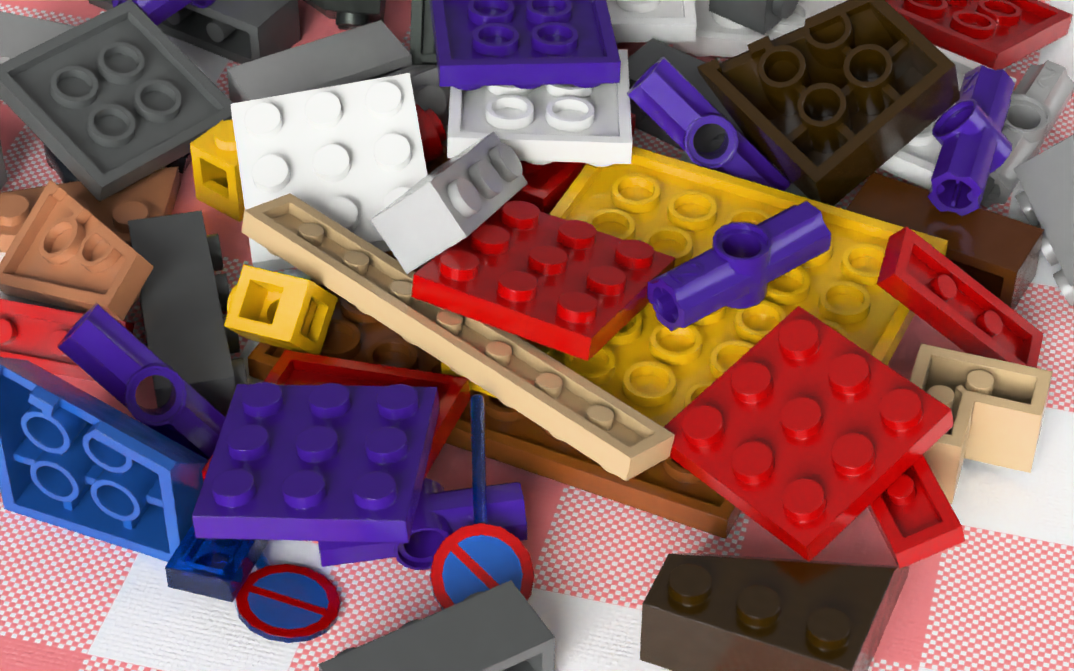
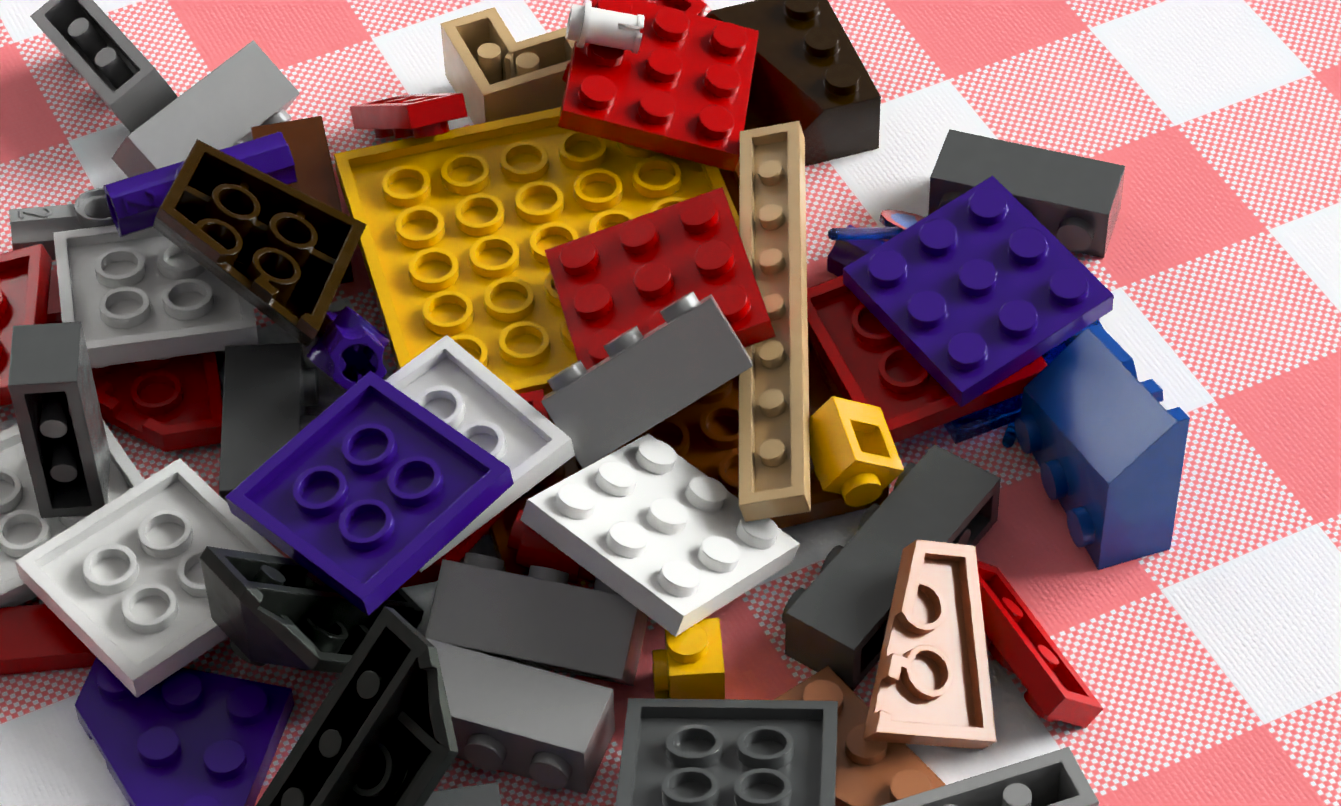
camera: 130 degrees left, 5 degrees up
(122, 361) = (1020, 448): dark purple piece -> none
(738, 266) = (519, 201): dark purple piece -> none
(868, 342) = (604, 27): none -> white pin

